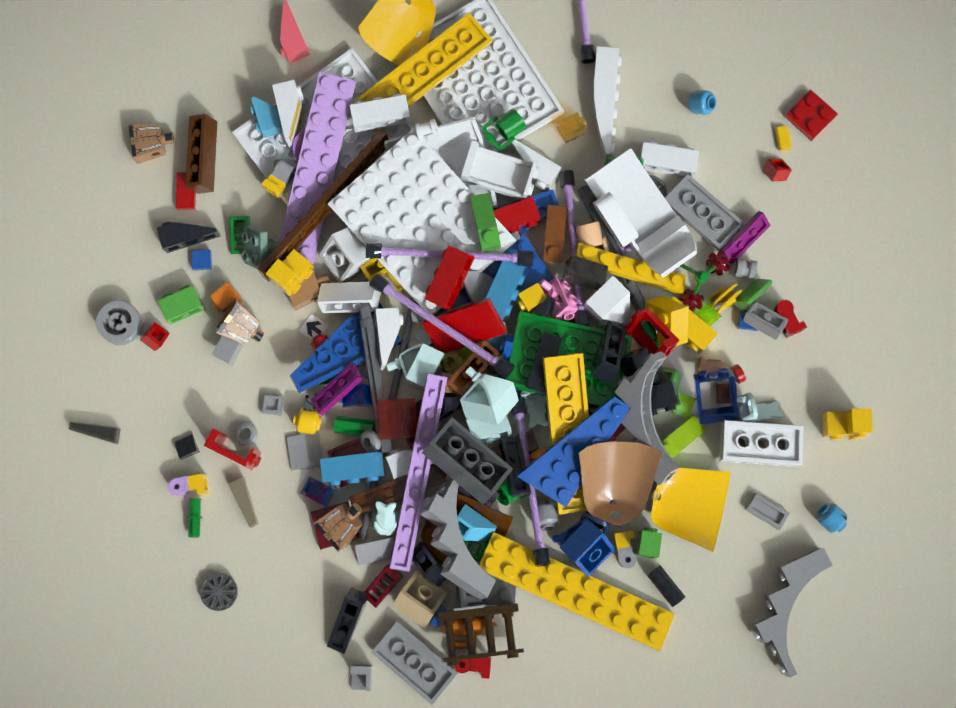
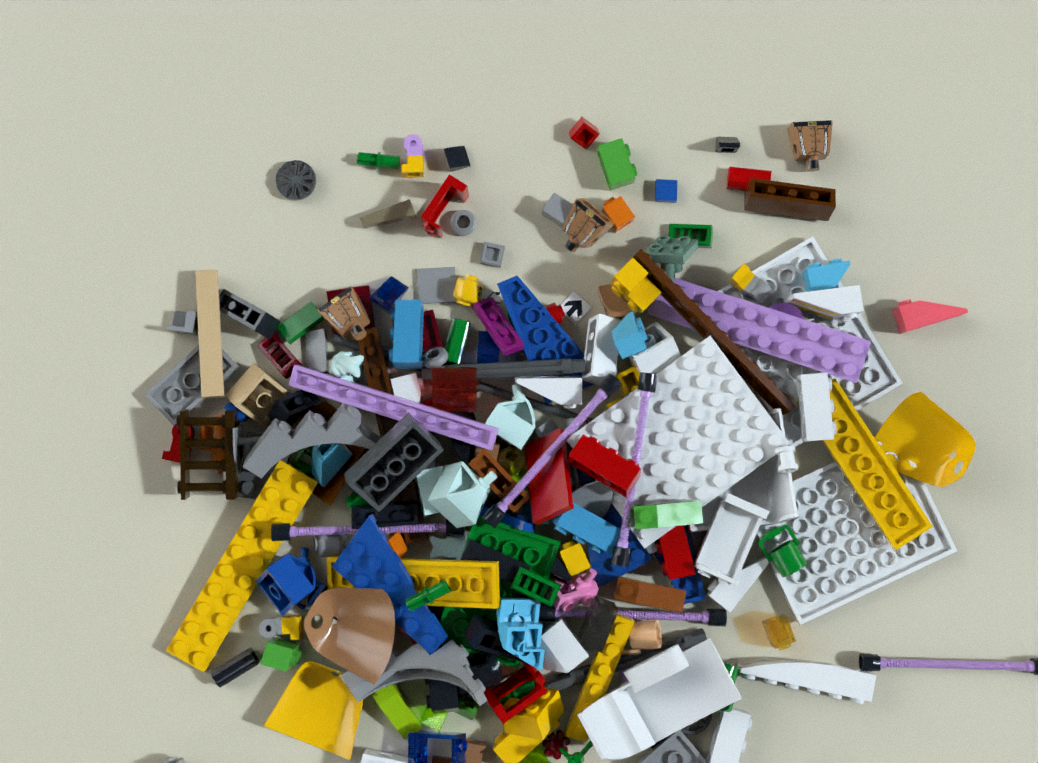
camera: 90 degrees right, 5 degrees up
(104, 433) = (483, 68): clear smoke piece -> none
(109, 315) = (609, 81): light grey wheel -> none
(155, 212) = (727, 144): none -> black slope
(181, 235) = (695, 166): black slope -> none
(334, 272) = (629, 336): none -> medium azure slope
(351, 569) = (300, 323): none -> green tile
(369, 650) = (209, 334): none -> tan tile
(565, 310) = (540, 597): none -> green slope
(579, 414) = (428, 595): none -> green axle
(598, 334) = (520, 629): none -> medium azure slope

